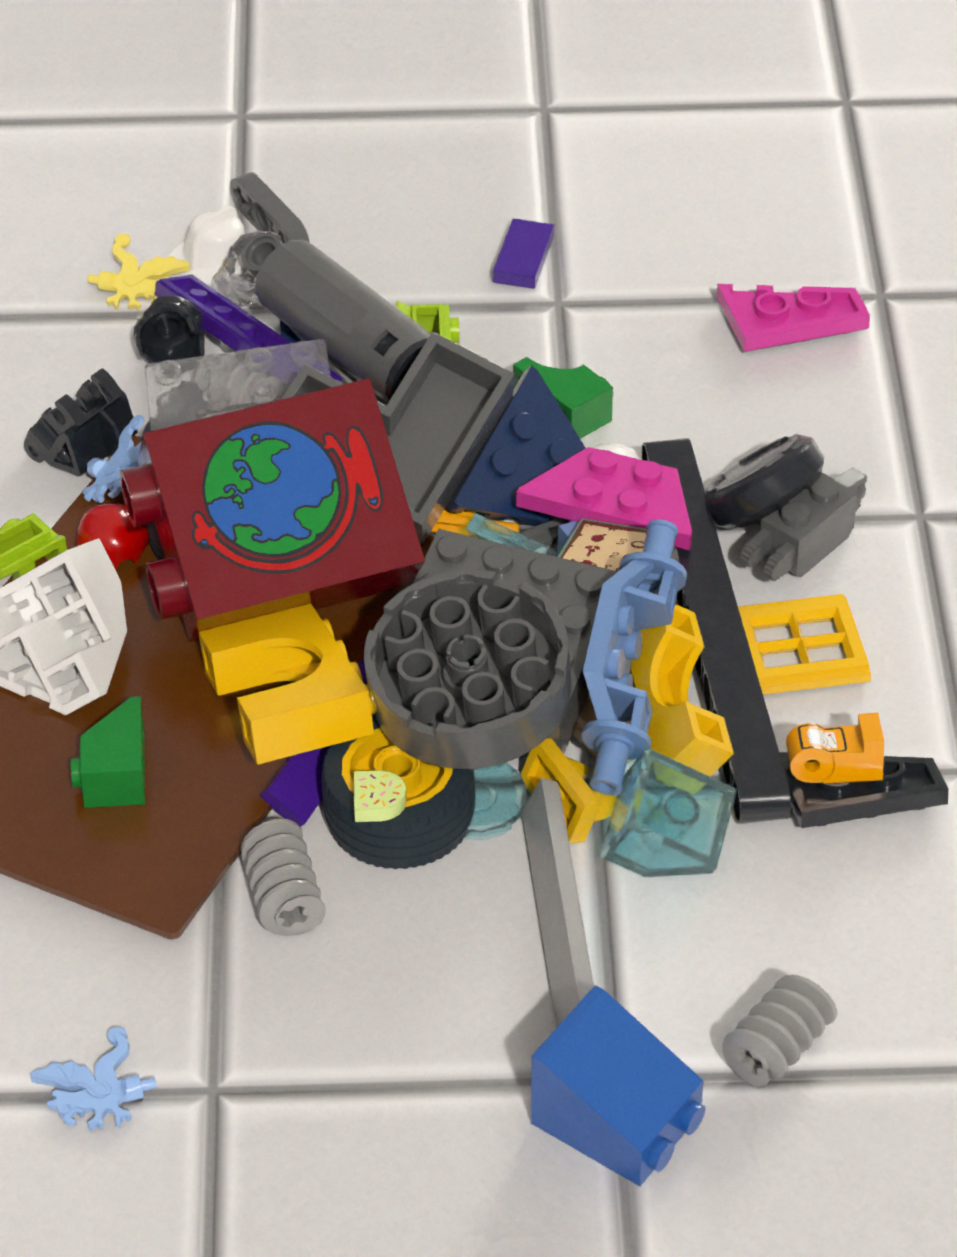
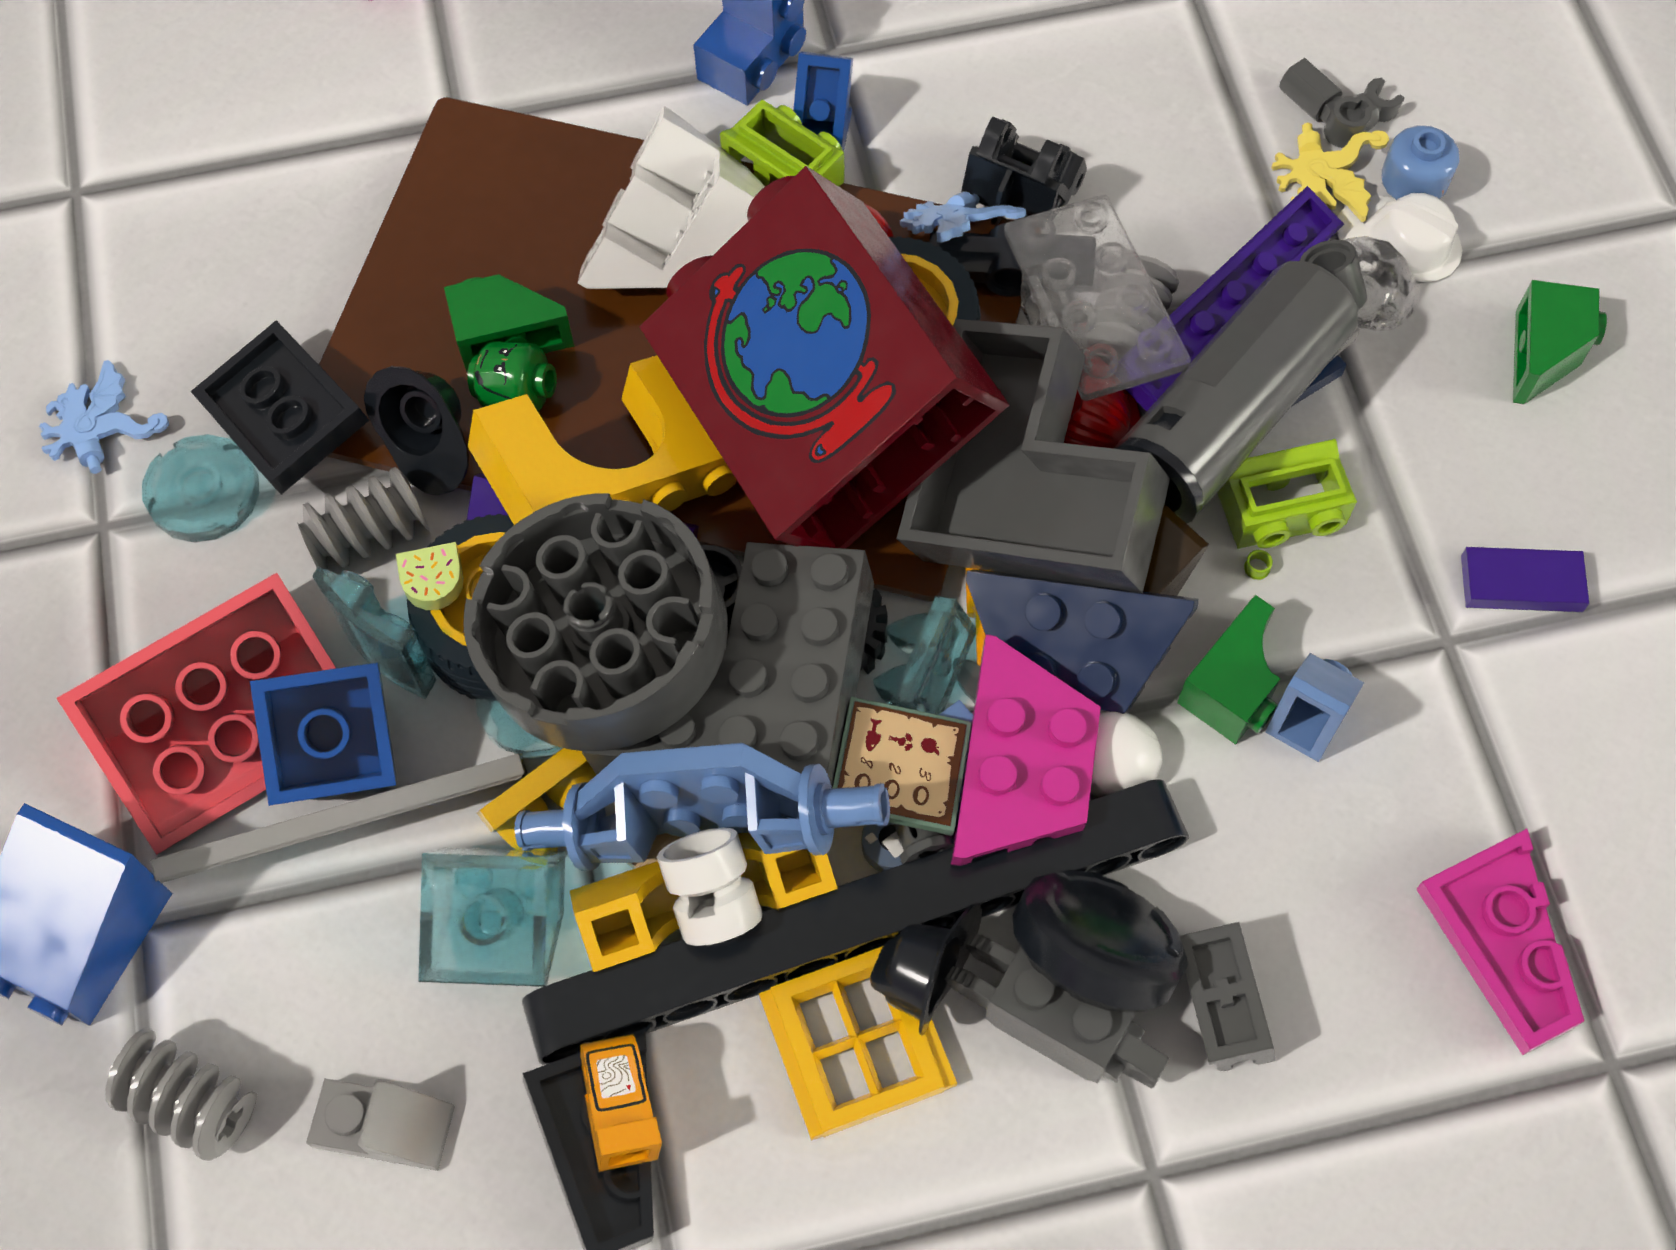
camera: 80 degrees right, 20 degrees up
(84, 253) = (1341, 115): none -> dark grey bar
(146, 922) = (279, 407): none -> black plate
(162, 219) = (1420, 162): none -> medium blue head
(170, 330) = (1210, 221): black hair -> none
(178, 755) = (510, 371): none -> green head
(198, 1009) = (200, 488): none -> clear light blue tile
(212, 812) = (420, 426): none -> black piece
(265, 208) = (1480, 277): dark grey beam -> none
(335, 193) = (1553, 334): none -> green slope
(406, 863) = (375, 632): none -> clear light blue slope
(431, 993) = (180, 714): none -> coral slope
(492, 896) = (323, 733): none -> blue brick
(609, 351) = (1314, 705): none -> medium blue slope
(684, 667) = (712, 894): none -> white wheel
(767, 571) = (918, 960): none -> black piece
(818, 923) = (381, 1123): none -> light grey slope
(831, 432) = (1226, 997): none -> dark grey hinge

